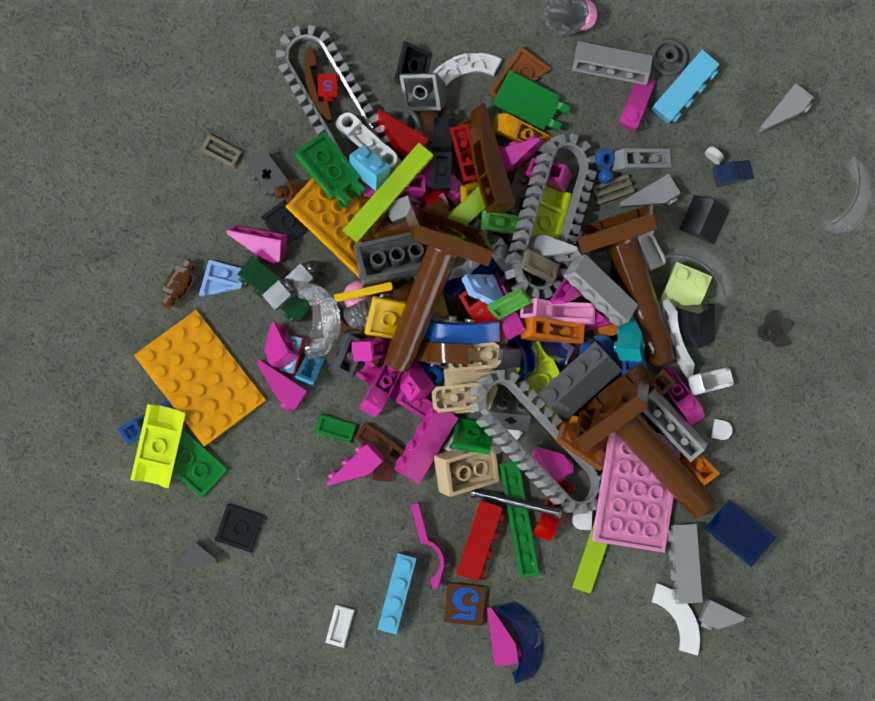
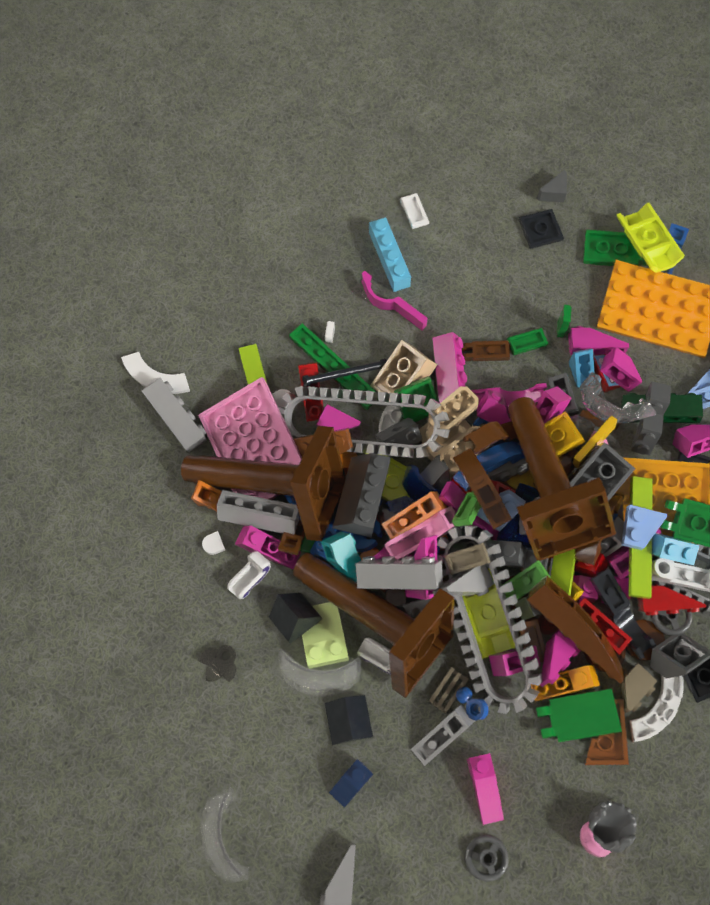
camera: 150 degrees right, 15 degrees down
(295, 420) = (564, 321): none -> green tile
(362, 464) = (488, 321): dark pink slope -> none
(379, 390) = (516, 381): dark pink slope -> none
(383, 472) = (466, 333): clear red tile -> none
(384, 198) = (640, 526): none -> light blue wing
(465, 604) = (331, 281): tile -> none
(470, 95) = (635, 686): none -> dark tan slope
(479, 540) = (354, 330): red brick -> none
(491, 310) = (482, 488): none -> reddish brown slope
(501, 553) = (329, 333): none -> white tile
(503, 645) = (283, 271): dark pink slope -> none
(530, 638) = (268, 289): clear blue windscreen -> none
(612, 63) = (535, 809): light grey brick -> none
(659, 193) = (407, 712): light grey slope -> none
(683, 358) = (303, 591): white tile -> none
(685, 86) = (451, 837): medium azure brick -> none
(714, 155) = (381, 788): white tile -> none
(717, 616) = (121, 395): light grey slope -> none
(740, 533) = (143, 469): clear blue slope -> none

